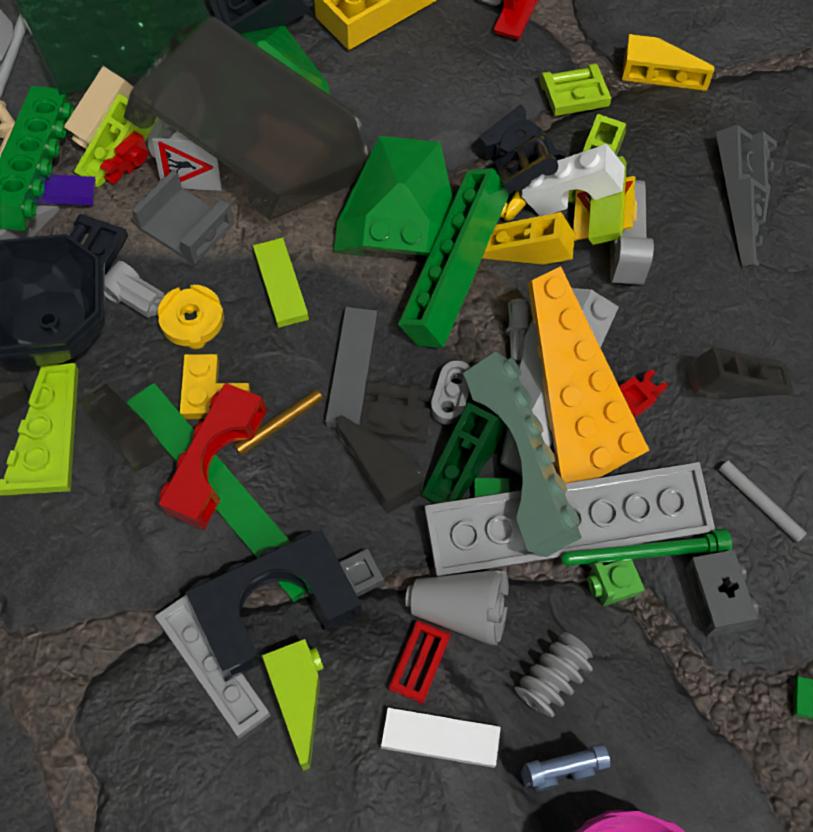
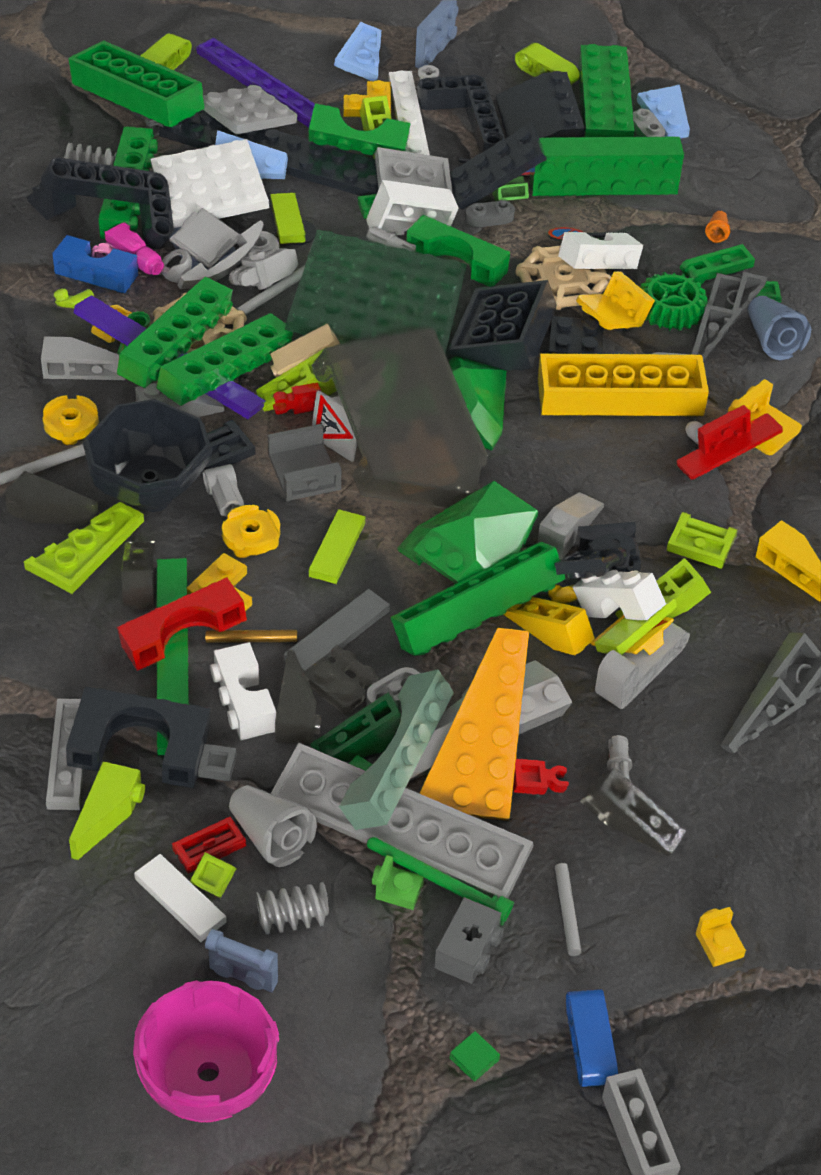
camera: 35 degrees right, 15 degrees down
(344, 502) = (250, 711): none -> white arch
(453, 693) = (213, 875): none -> lime tile
(459, 139) = (562, 522): none -> light grey slope
(686, 333) = (619, 755): none -> light grey axle

